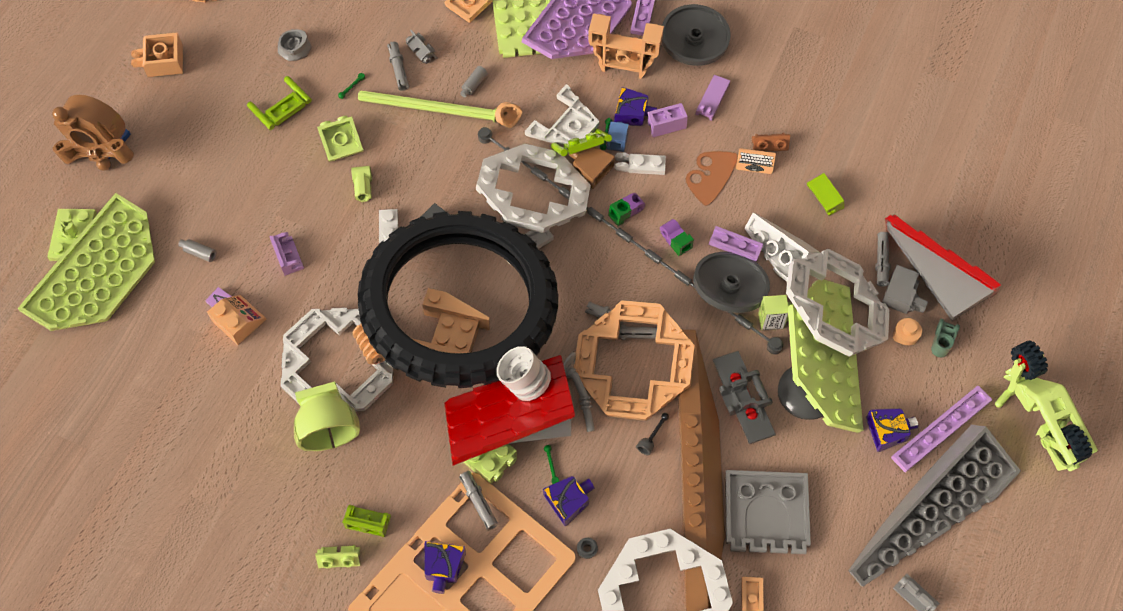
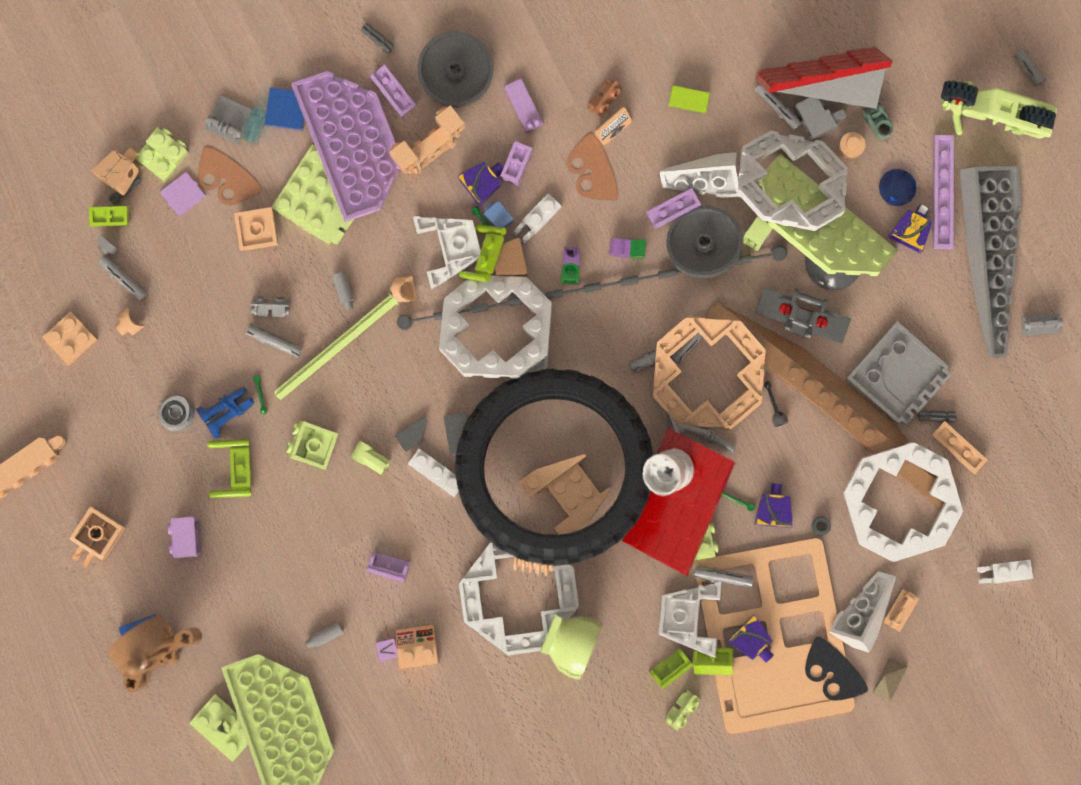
camera: 50 degrees left, 20 degrees up
(201, 106) = (185, 537): none -> lavender brick
(331, 73) = (230, 402): none -> blue piece
(399, 547) = (718, 665): none -> lime hinge
(404, 199) = (412, 435): none -> dark grey tile
(417, 492) = (681, 615): none -> white wing
(762, 570) = (939, 416): none -> dark grey axle
(910, 392) = (897, 187): none -> clear blue dish
(1102, 417) = (1029, 67): none -> light grey pin

